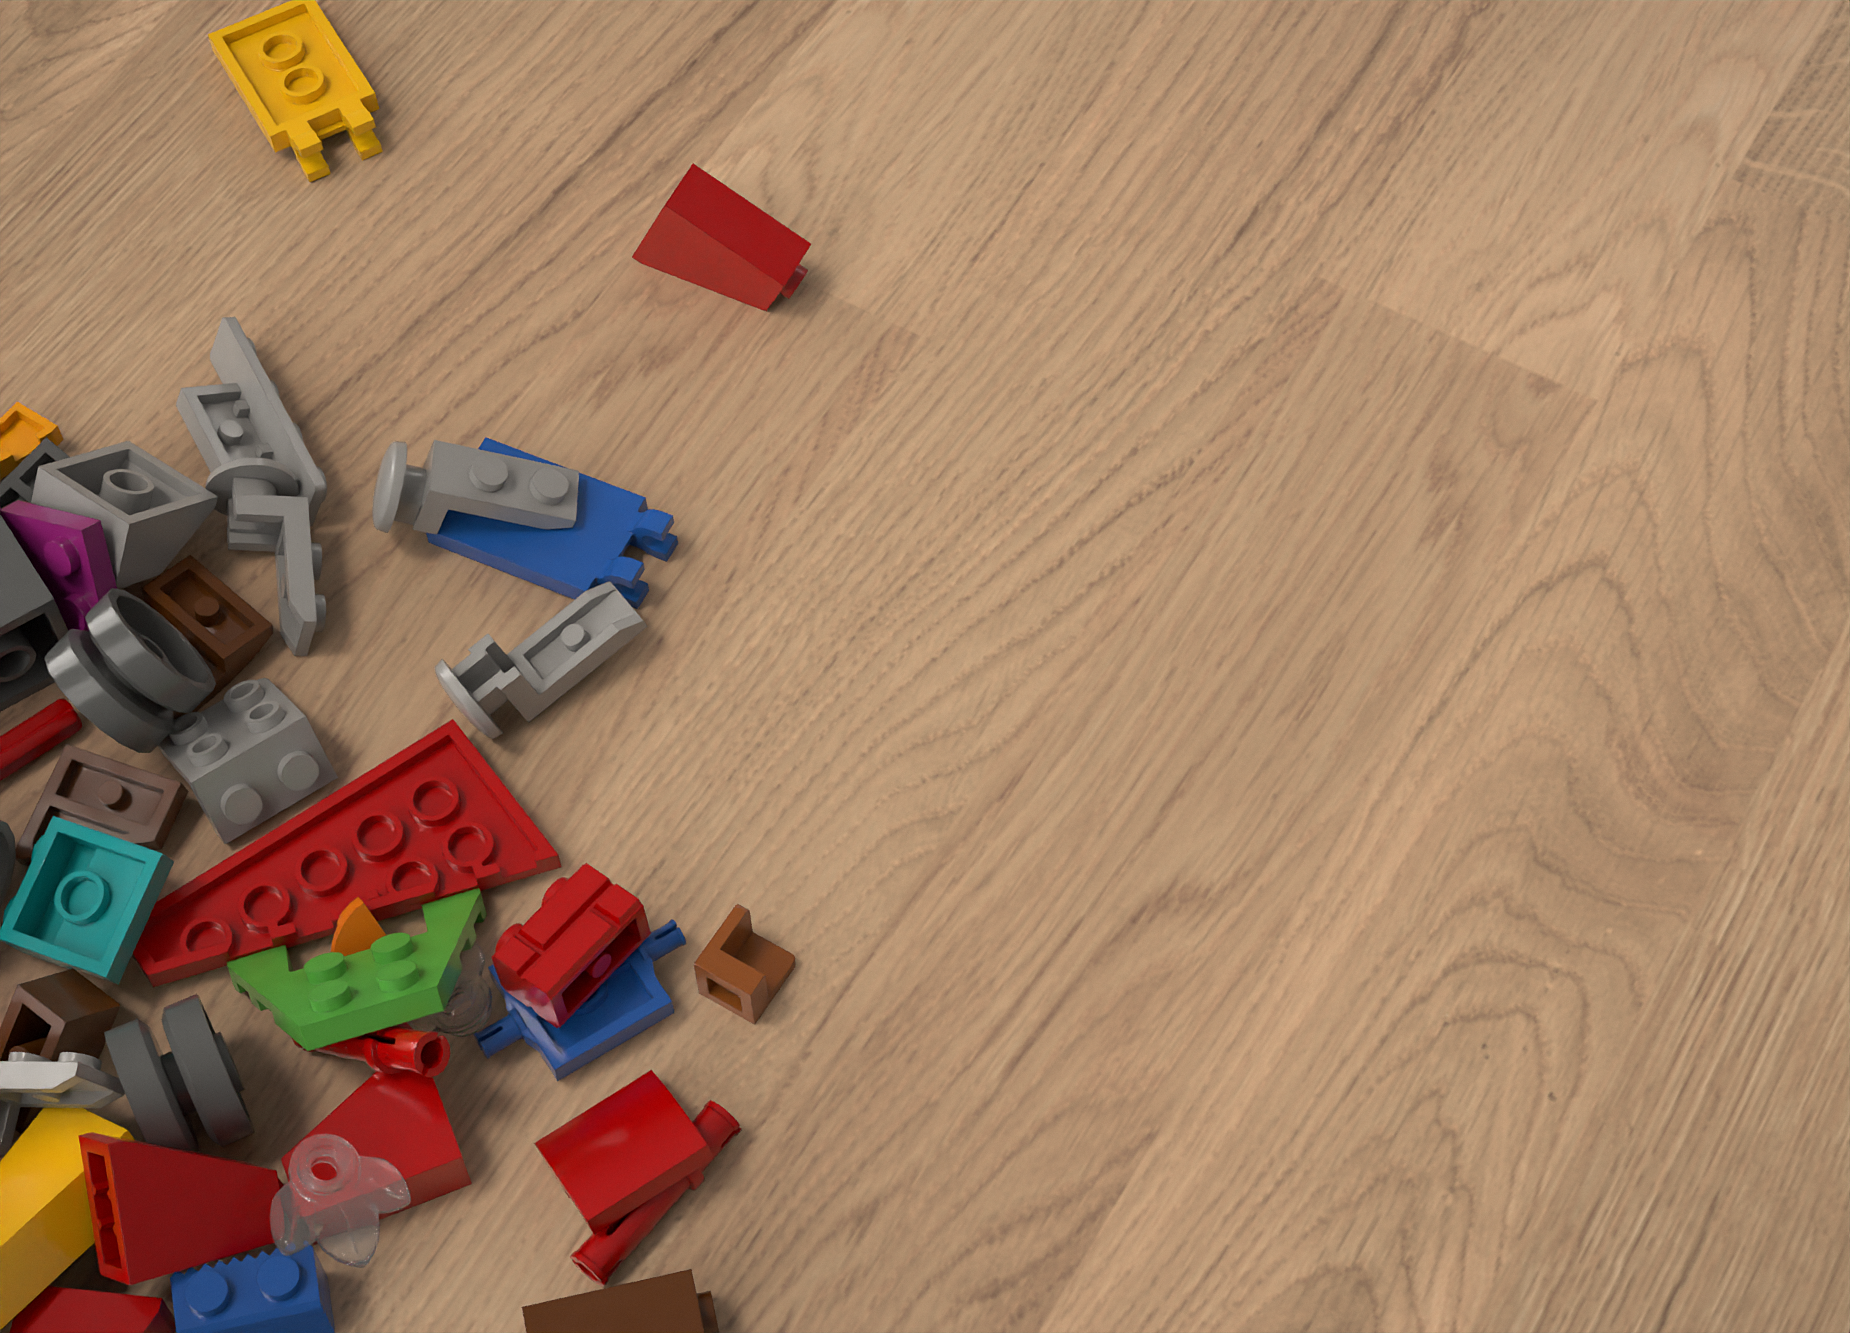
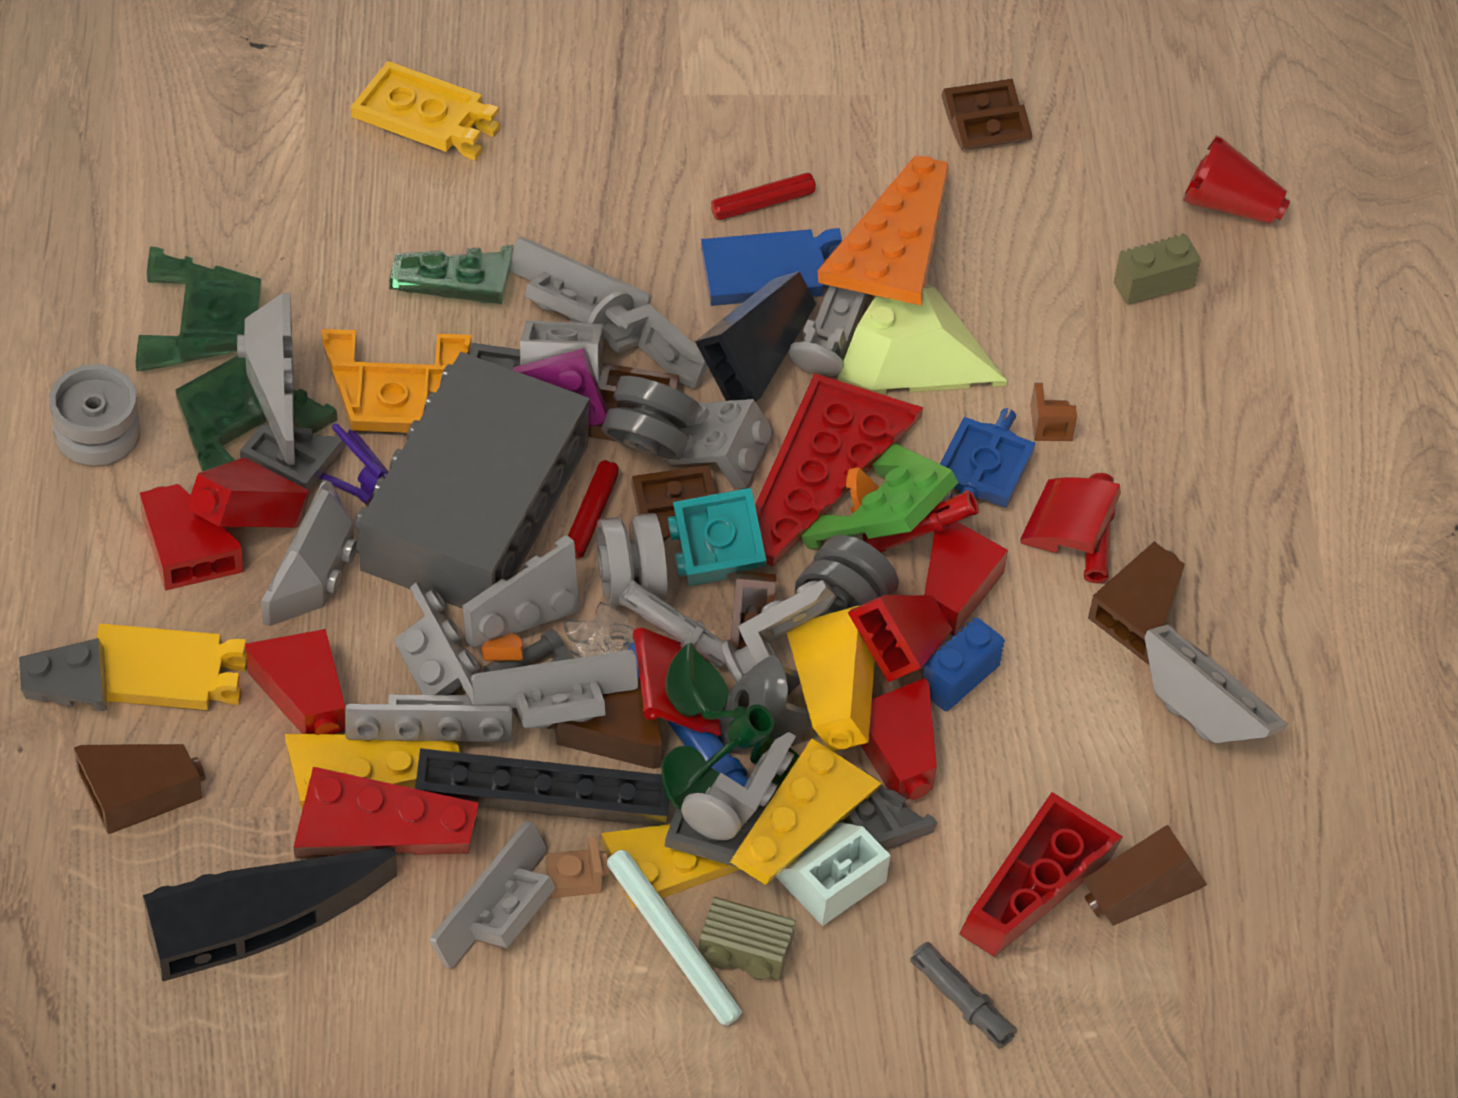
camera: 40 degrees left, 5 degrees down
(124, 333) = (464, 276): none -> clear green wing
(335, 1211) = (972, 592): clear plate -> none
(398, 623) = (756, 337): none -> black slope
(473, 484) = (706, 272): light grey piece -> none
(570, 944) = (977, 435): red brick -> none
(631, 415) = (763, 196): none -> red axle
(647, 741) = (915, 348): none -> yellowish green wedge
(715, 575) = (895, 238): none -> orange wing
(723, 243) = (739, 89): red slope -> none
(1054, 445) = (986, 114): none -> reddish brown slope
(1092, 814) = (1156, 269): none -> olive brick
(1323, 739) = (1235, 185): none -> red cone

